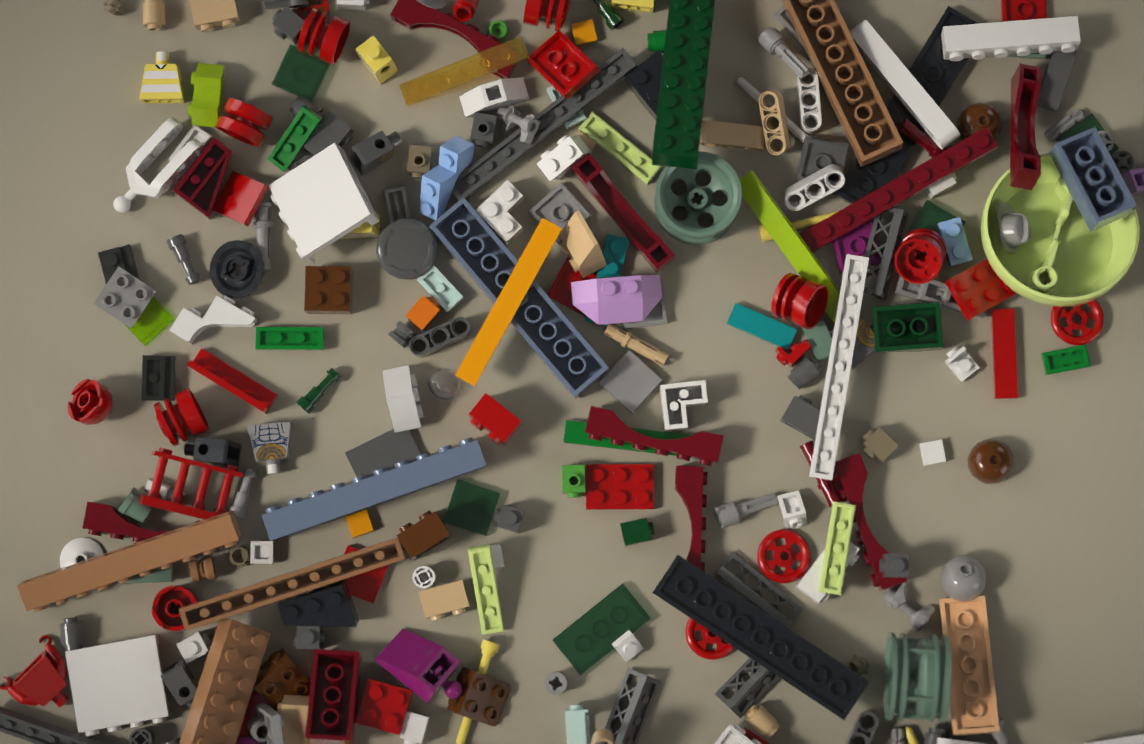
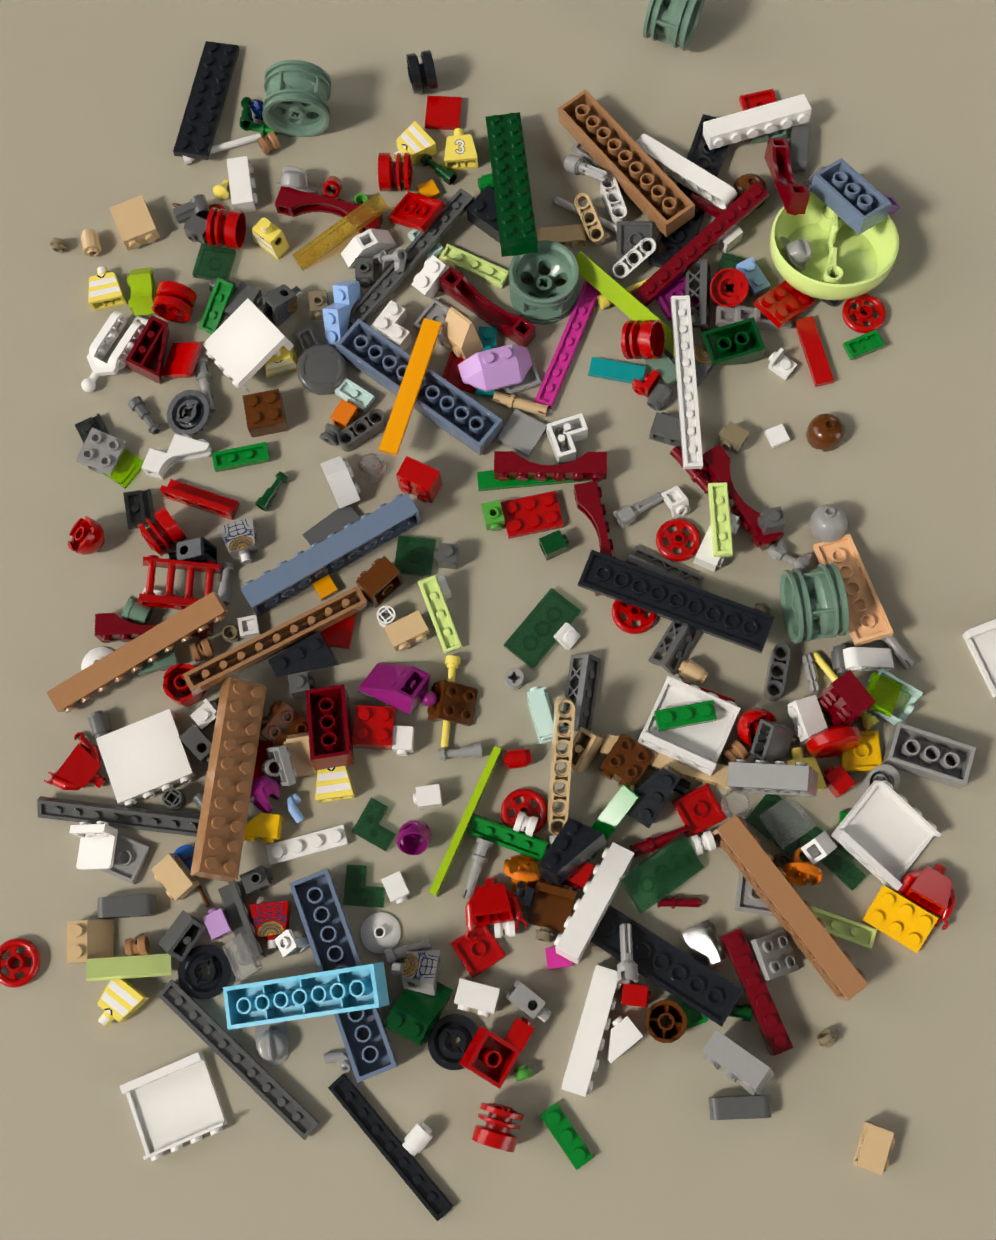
camera: 10 degrees left, 10 degrees down
(708, 282) = (567, 346): none -> dark pink tile

